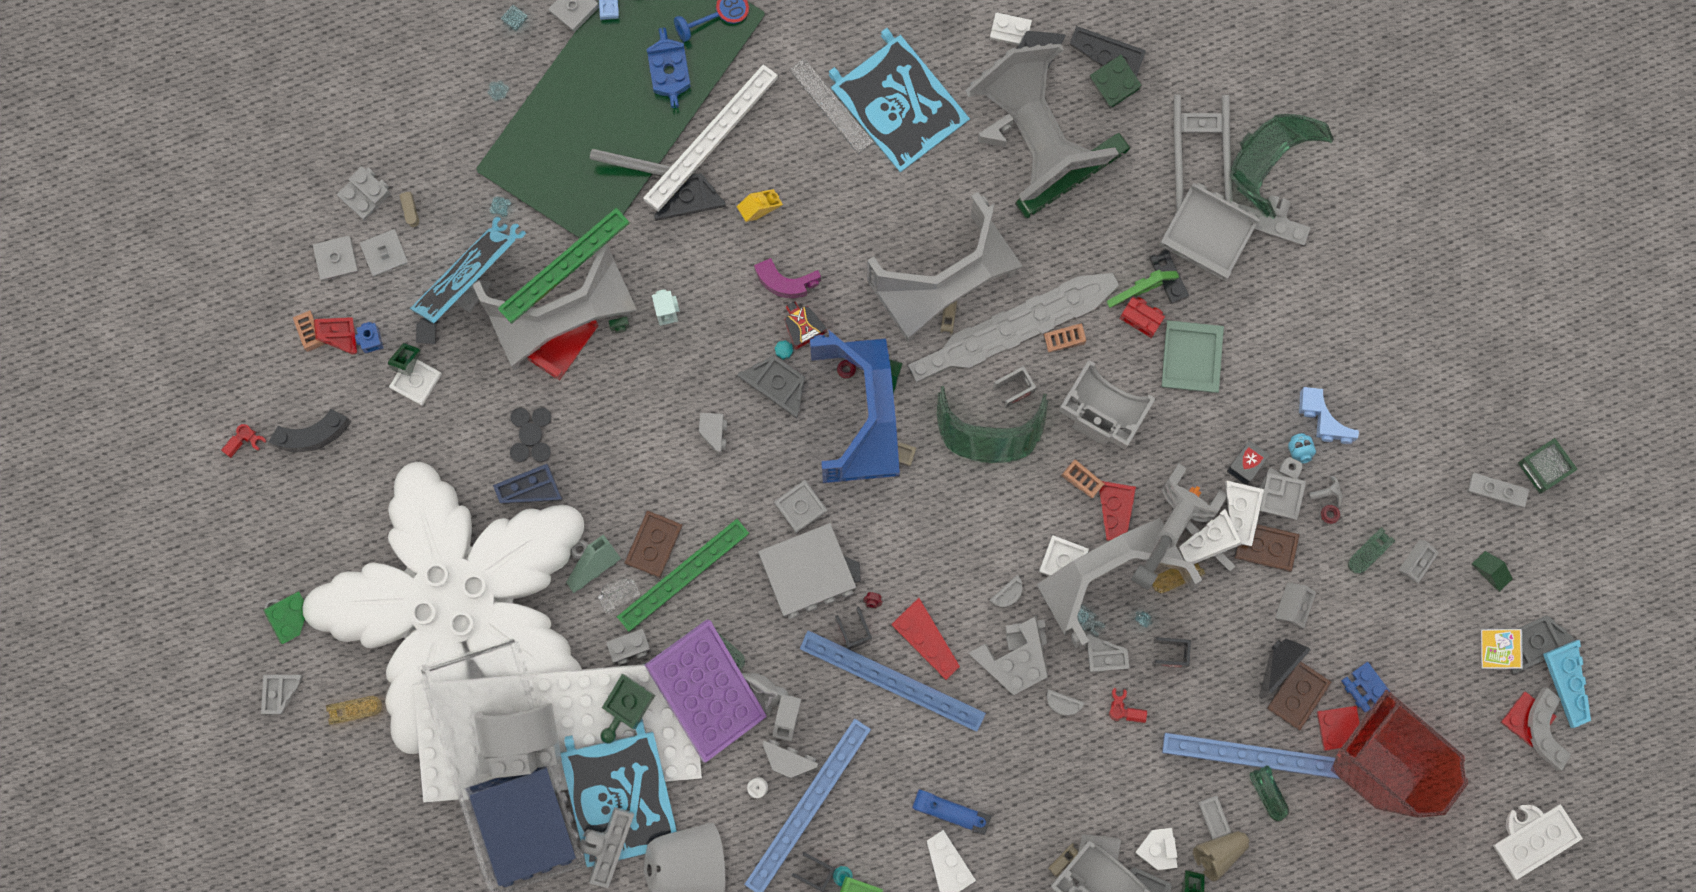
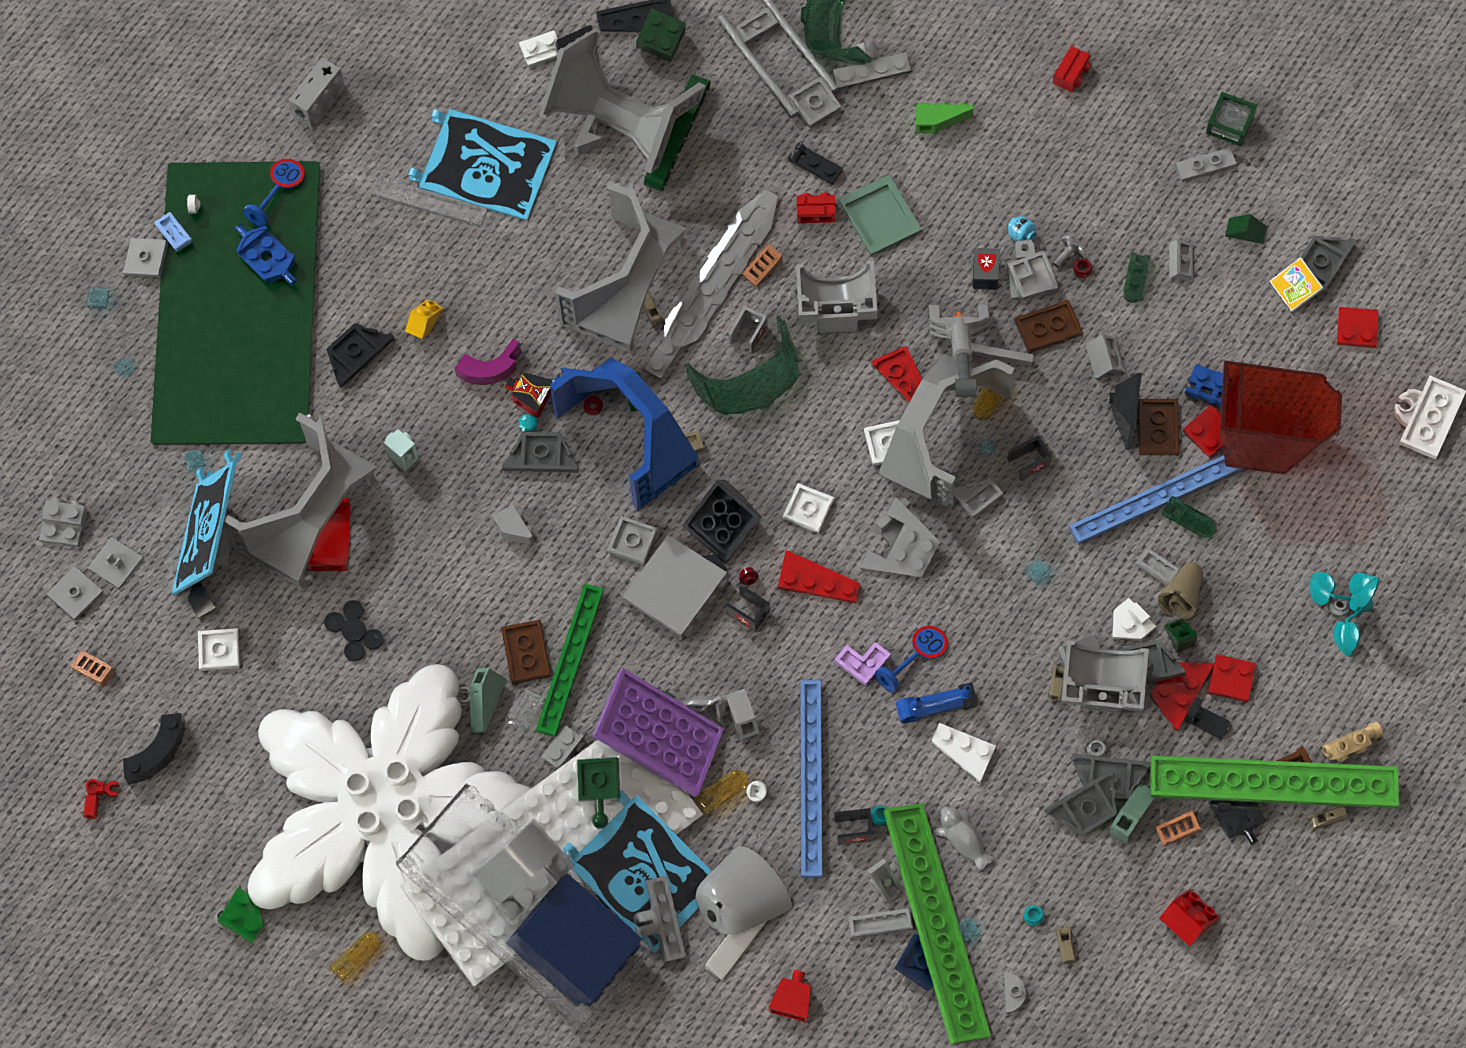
camera: 30 degrees left, 10 degrees down
(278, 692) = (278, 984): light grey wing -> none
(336, 333) = (121, 652): red wing -> none
(369, 337) = (152, 638): blue brick -> none
(404, 359) = (199, 636): dark green slope -> none
(409, 209) = (113, 511): dark tan bar -> none
(529, 487) = (384, 671): dark blue wedge -> none
(563, 265) = (295, 455): green plate -> none
(619, 325) = (369, 490): dark green plate -> none
(628, 162) = (291, 349): light grey axle -> none
(710, 138) = (343, 289): white plate -> none
(730, 768) = (722, 791): none -> clear yellow plate
(787, 761) = (767, 752): light grey slope -> none
(884, 538) = (722, 520): none -> black slope
(892, 681) = (811, 630): medium blue plate -> none
(914, 741) = (862, 667): none -> lavender plate
(961, 573) = (808, 508): none -> white tile
(981, 756) = (927, 642): none -> blue piece
(1008, 594) = (860, 499): light grey plate -> none
(1063, 704) = (969, 557): light grey plate -> none
(1087, 474) = (850, 374): nougat slope -> none
(1112, 753) = (1038, 571): none -> clear light blue plate
(1118, 712) = (1030, 530): red bar -> none
(1143, 286) = (799, 182): bright green wing -> none
(1209, 231) = (824, 105): light grey panel -> none
(1211, 540) = (1001, 340): white wing -> none
(1244, 509) = (1009, 308): white wing -> none
(1296, 301) = (936, 117): none -> bright green slope
(1328, 428) = (1032, 200): light blue arch -> none
(1441, 332) = (1072, 69): none -> red brick
(1539, 723) = (1381, 335): light grey plate -> none
(1568, 679) = (1360, 269): medium azure wing -> none

